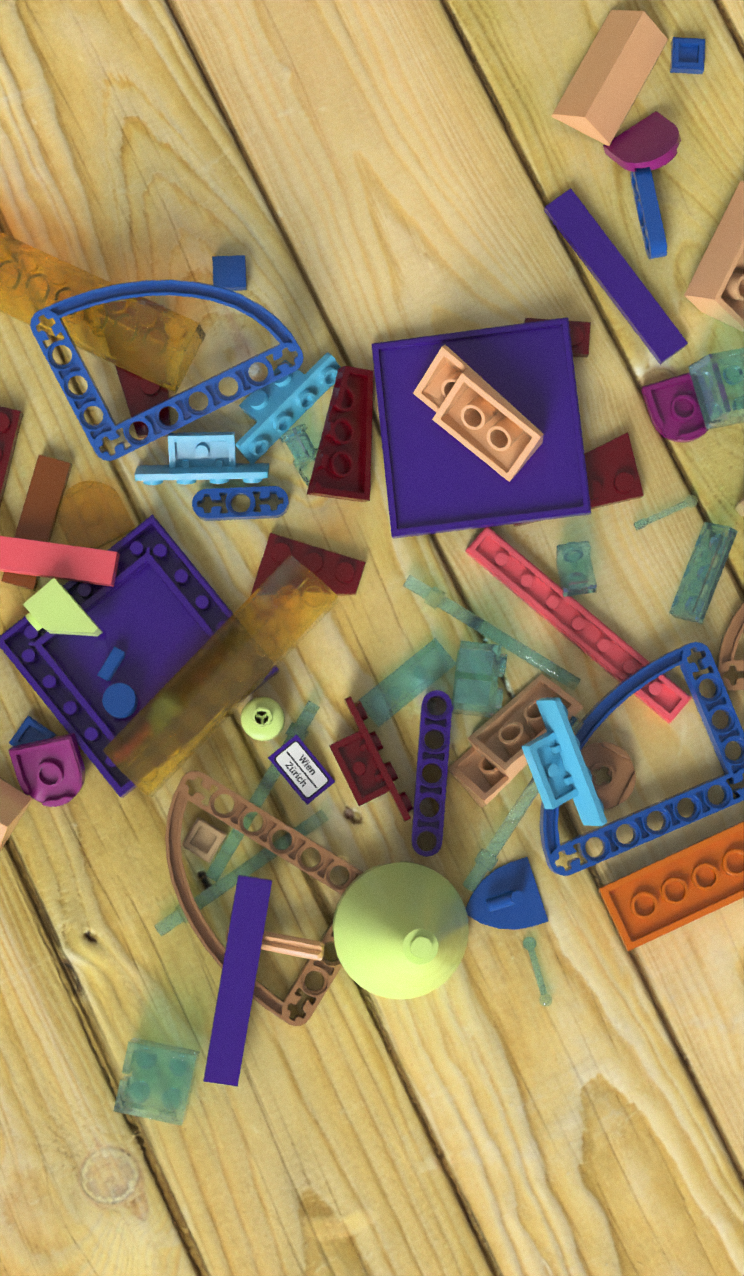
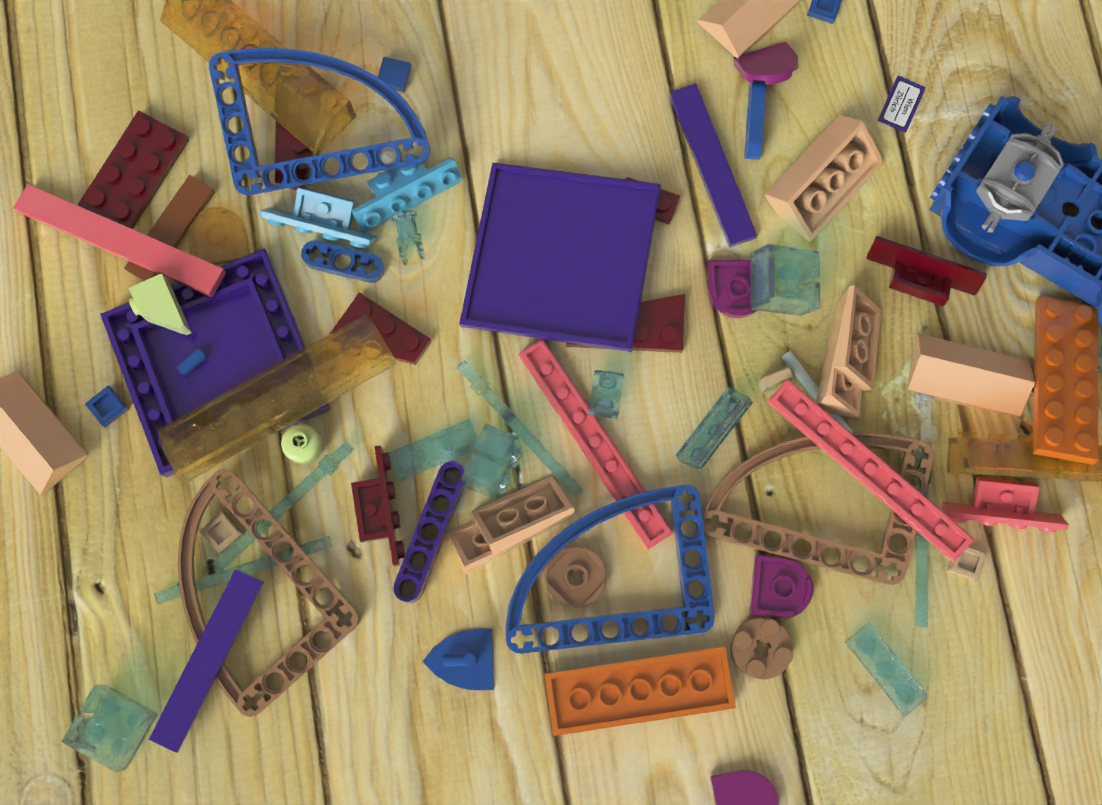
camera: 15 degrees right, 5 degrees down
(49, 769) = (110, 435): magenta tile -> none
(120, 700) = (187, 393): blue tile -> none
(292, 945) = (264, 644): light nougat axle -> none
(301, 769) = (322, 497): sticker -> none
(345, 445) = (444, 236): dark red wing -> none
(400, 930) = (361, 659): yellowish green cone -> none
(478, 414) = (560, 242): light nougat slope -> none
(487, 857) = (456, 619): clear light blue bar -> none
(529, 944) = (470, 705): clear light blue hinge -> none
(560, 767) = (537, 555): medium azure bracket -> none
(690, 501) = (720, 367): clear light blue hinge -> none

